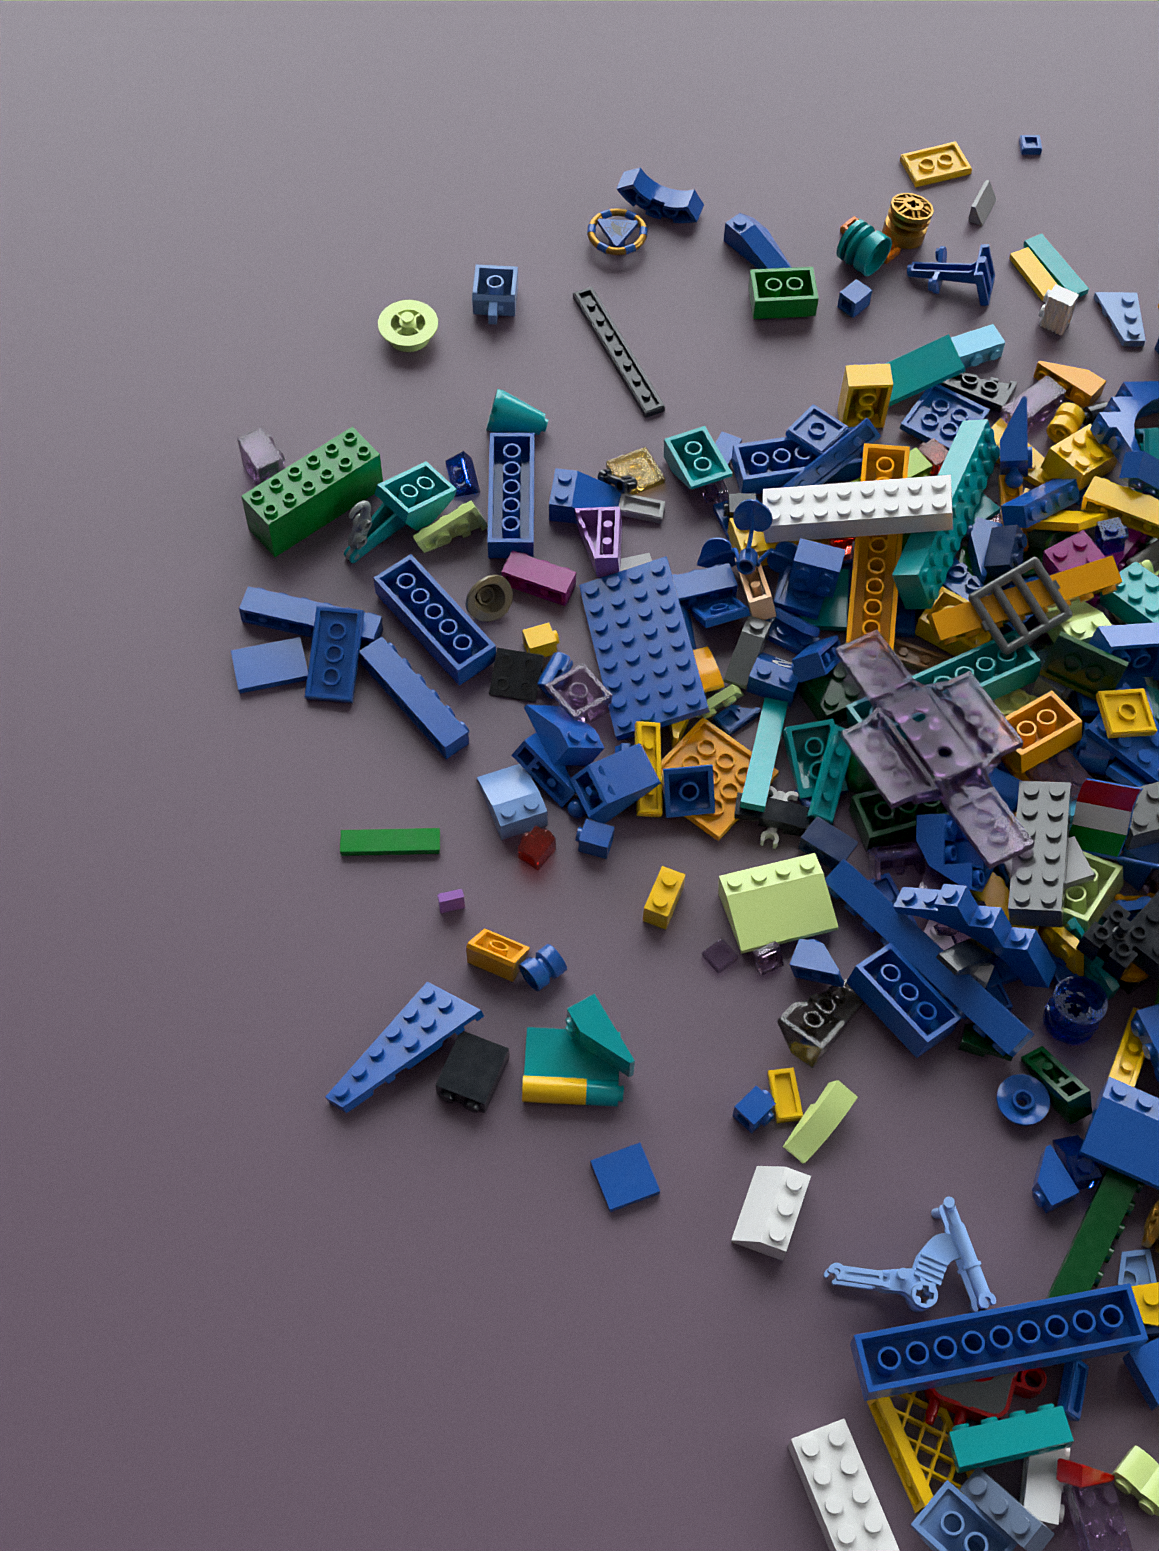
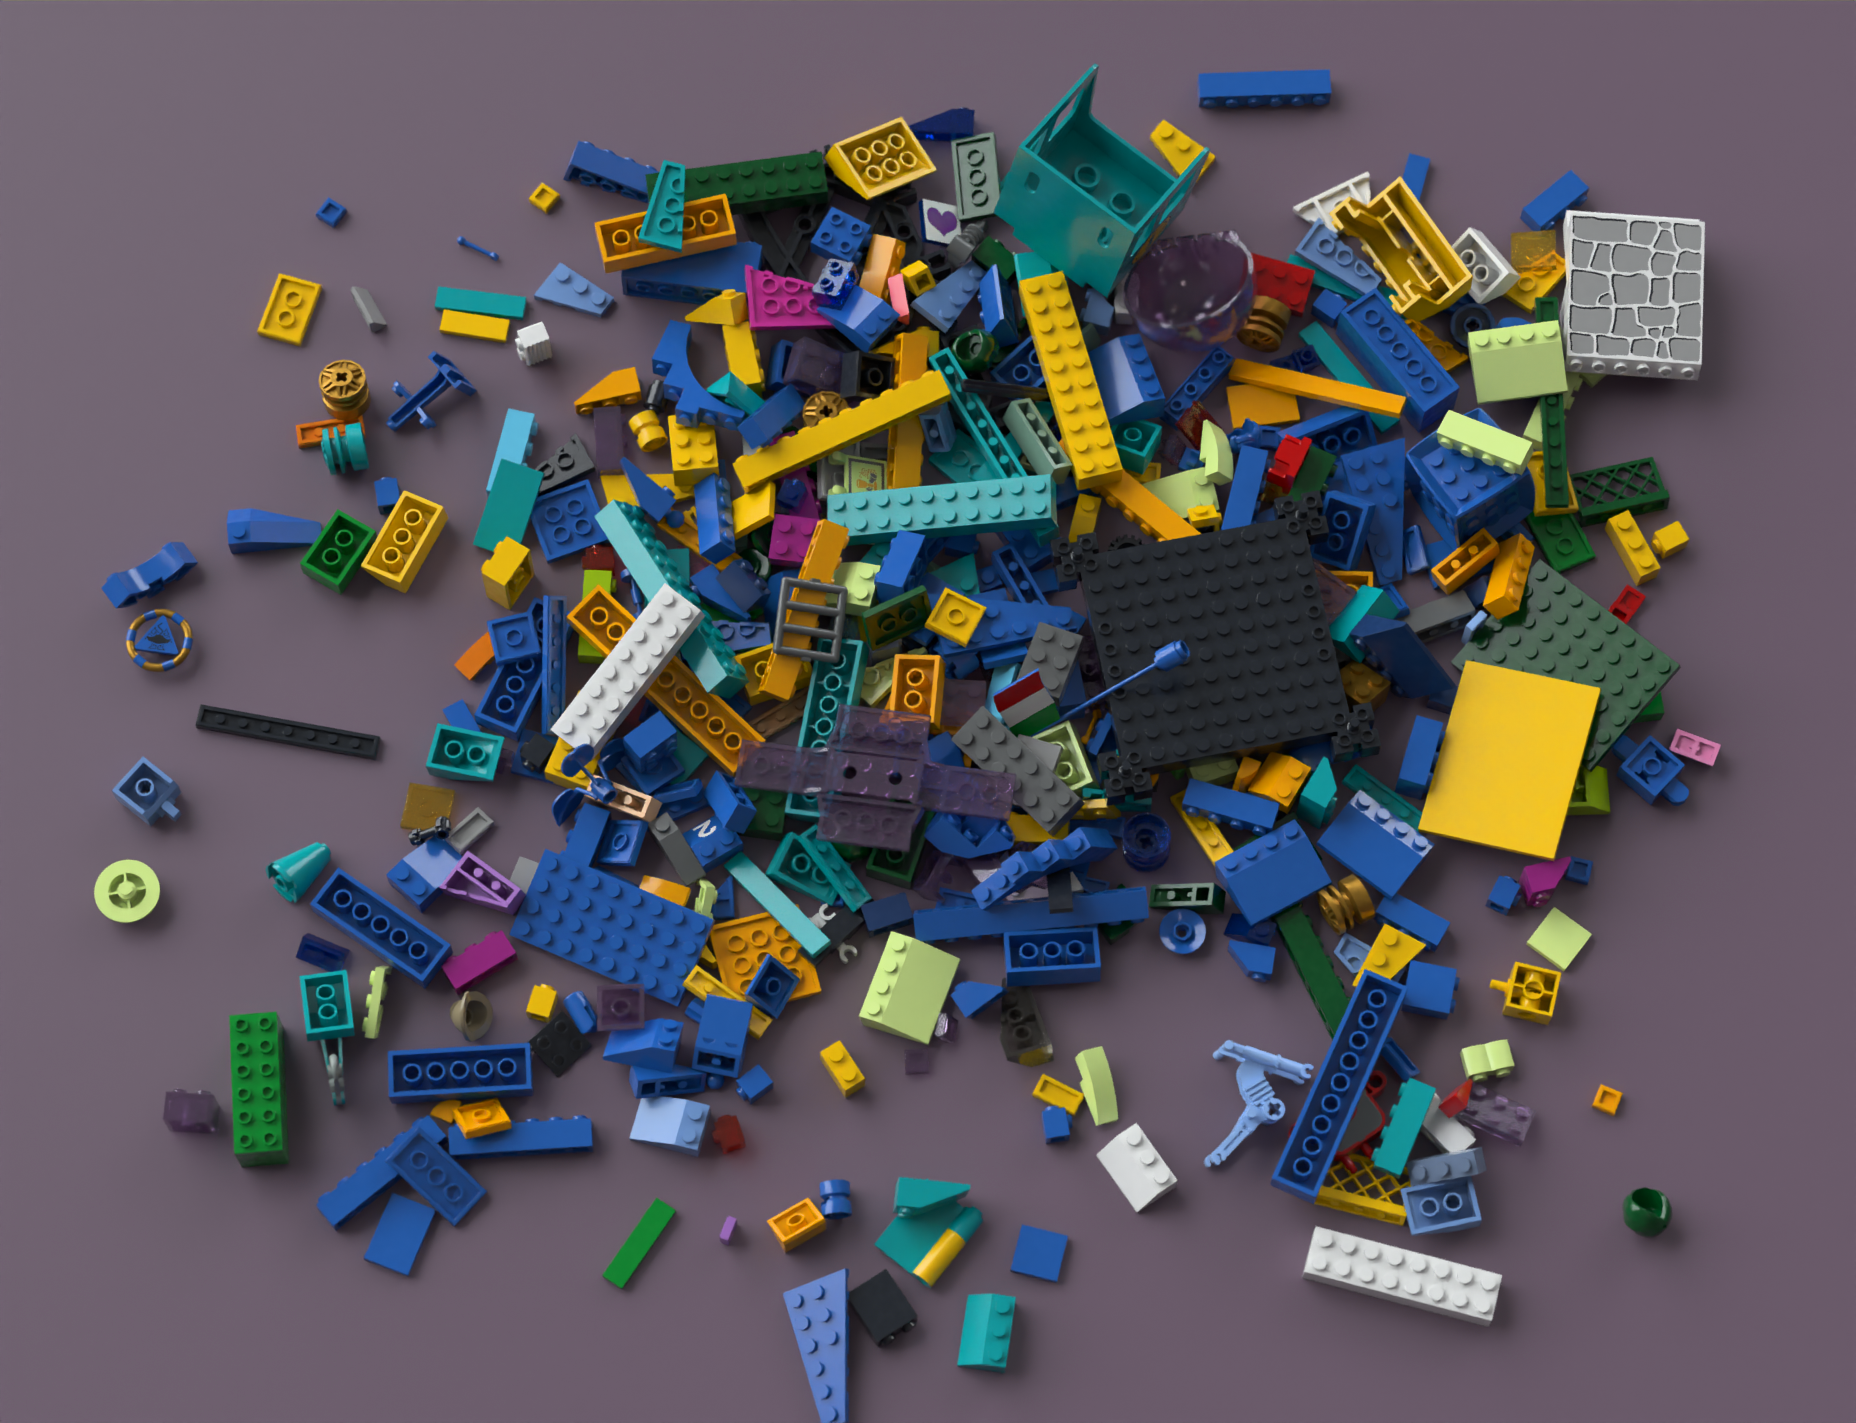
camera: 55 degrees left, 10 degrees up
(399, 633) = (443, 1110): none -> light orange tile
(407, 654) = (481, 1118): none -> light orange tile
(516, 1181) = (986, 1332): none -> teal slope
(776, 427) = (476, 657): none -> orange slope
(829, 326) = (405, 541): none -> yellow slope
(1090, 228) = (462, 241): none -> blue hinge

